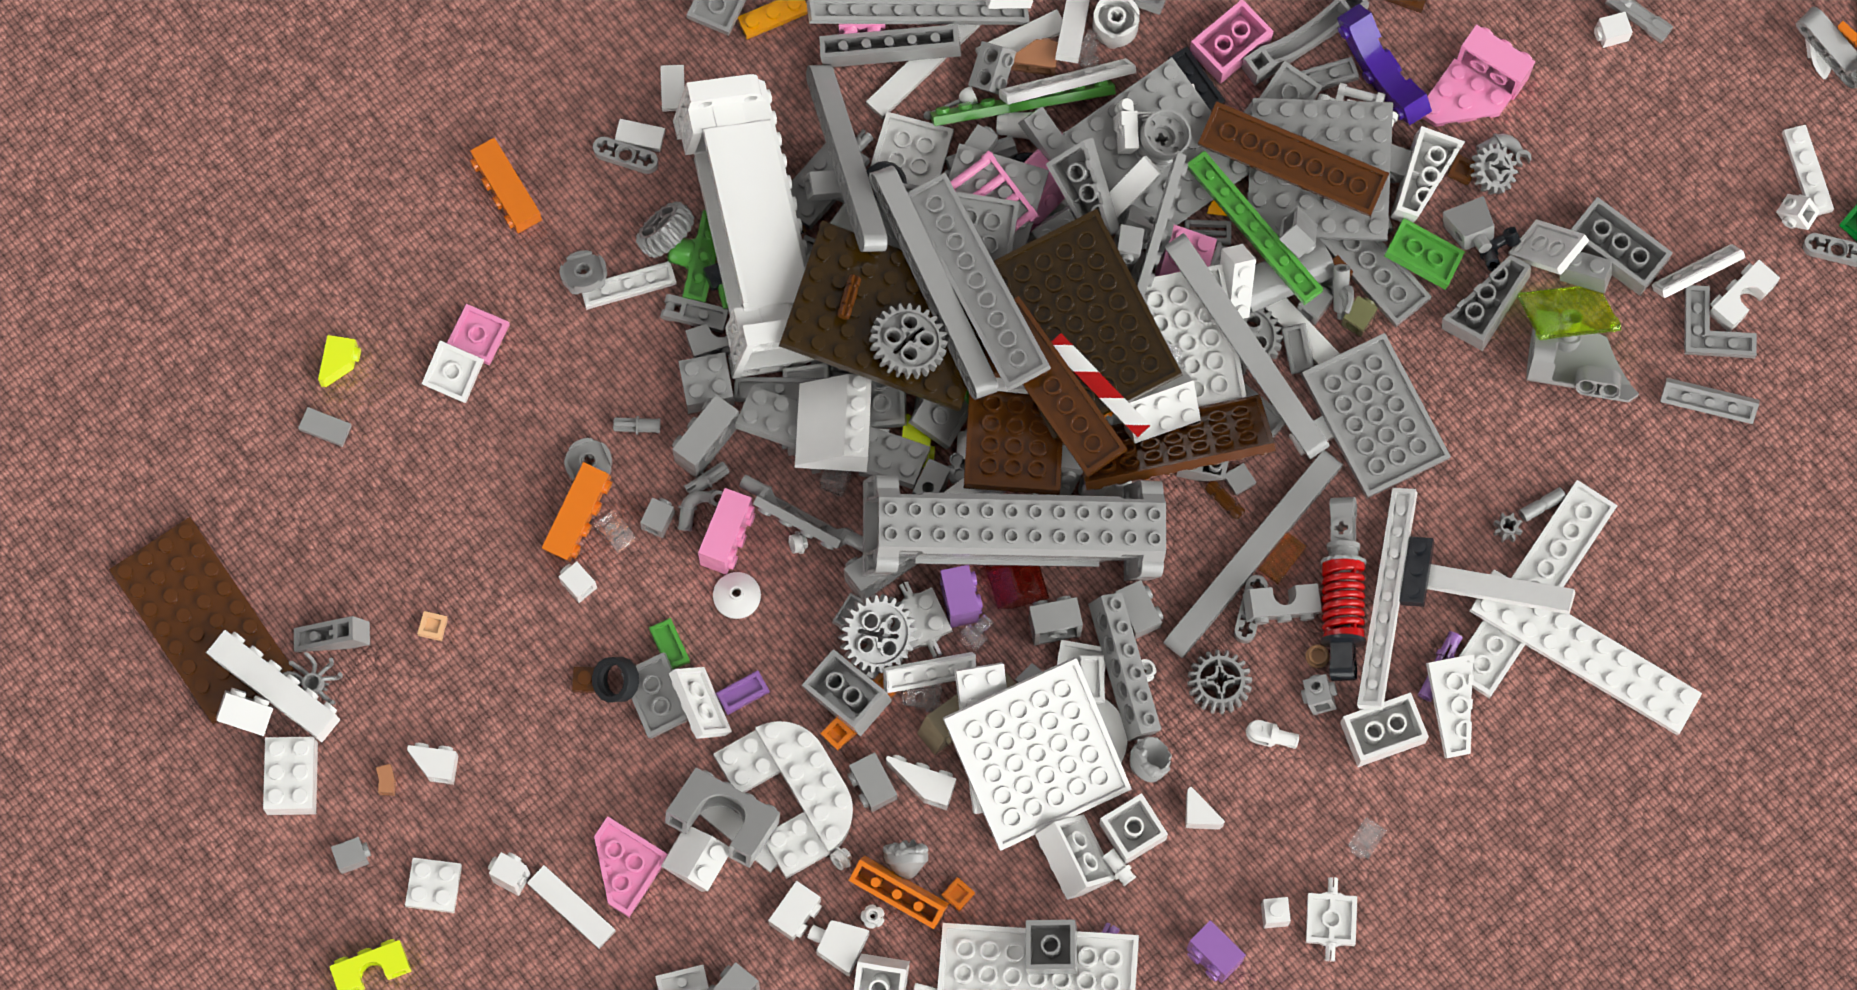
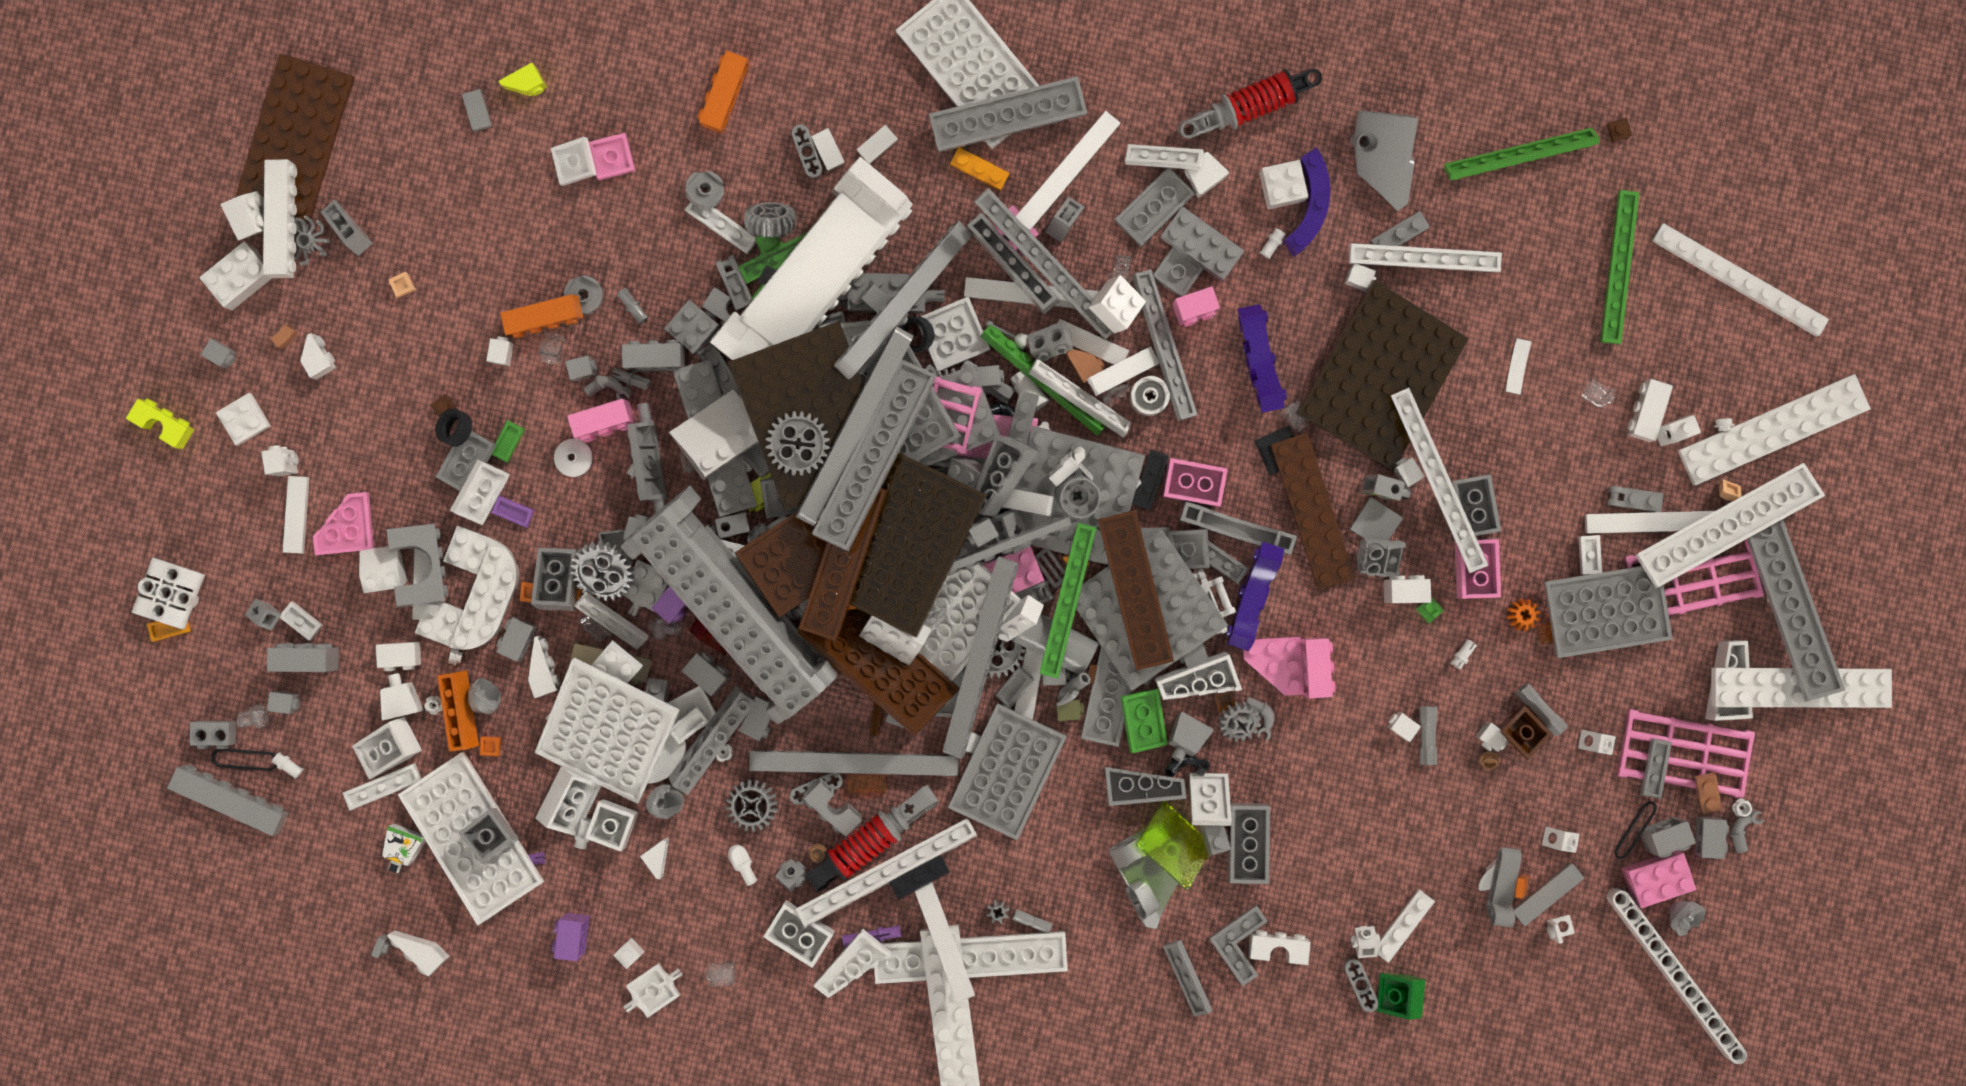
camera: 55 degrees right, 15 degrees up
(849, 297) = (796, 381): reddish brown axle -> none
(1100, 386) = (868, 589): sticker -> none
(1298, 232) = (1086, 632): light grey brick -> none
(1698, 270) = (1273, 906): white tile -> none

